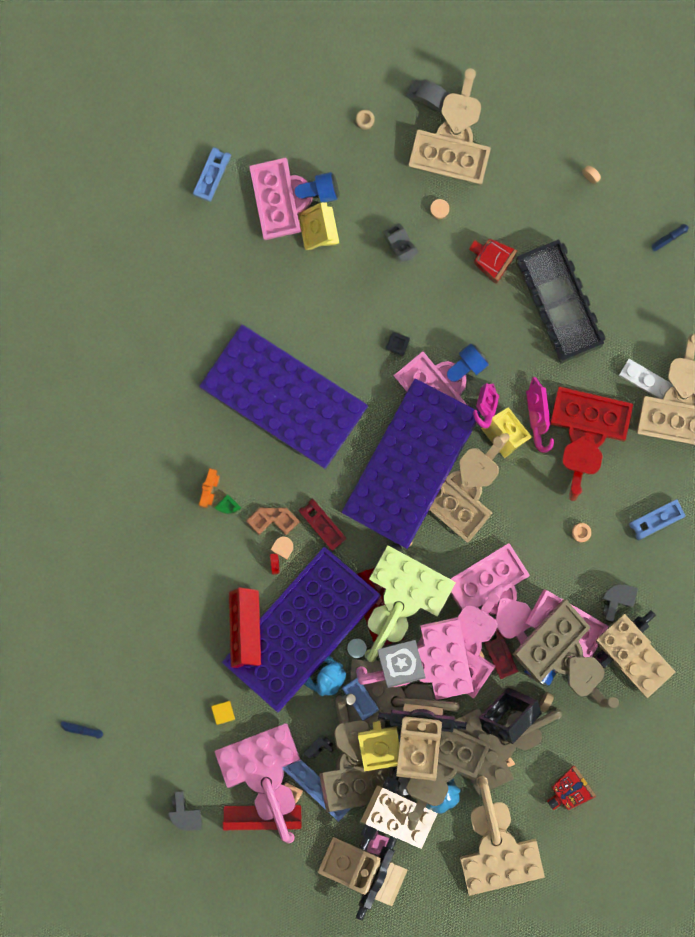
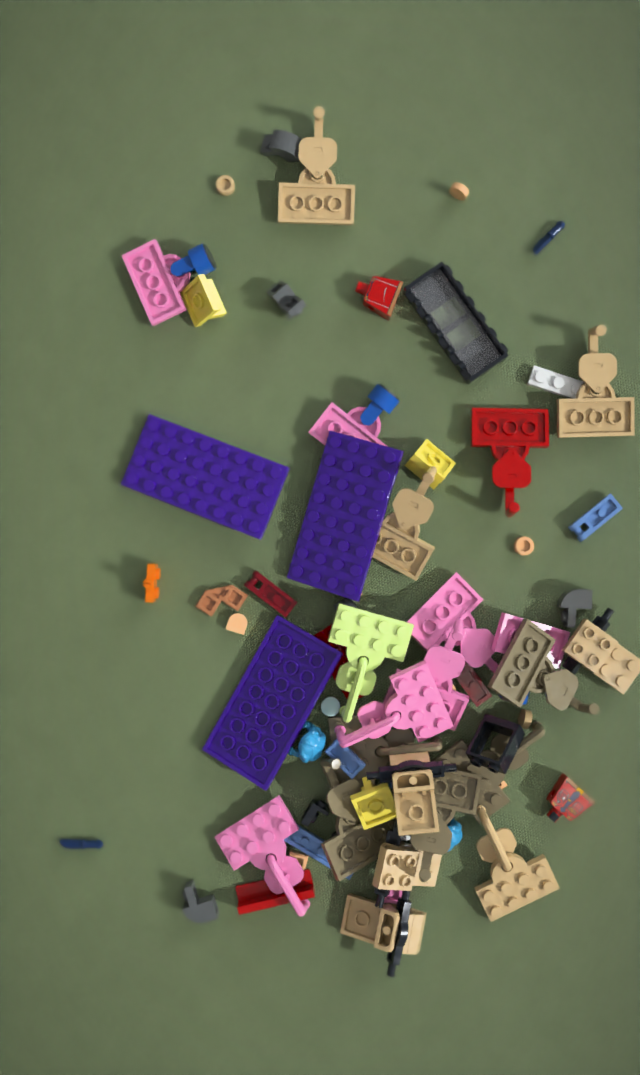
camera: 10 degrees left, 5 degrees up
(211, 175) = (86, 272): medium blue plate -> none
(223, 712) = (214, 797): yellow tile -> none
(227, 505) = (174, 594): green tile -> none
(244, 627) = (217, 712): panel -> none
(274, 564) = (232, 641): red tile -> none
(397, 343) = (305, 400): black tile -> none
(401, 663) = (378, 720): light grey tile -> none
(439, 209) = (317, 258): light nougat tile -> none
(486, 405) = (406, 442): dark pink plate -> none
(538, 414) = (458, 439): dark pink plate -> none

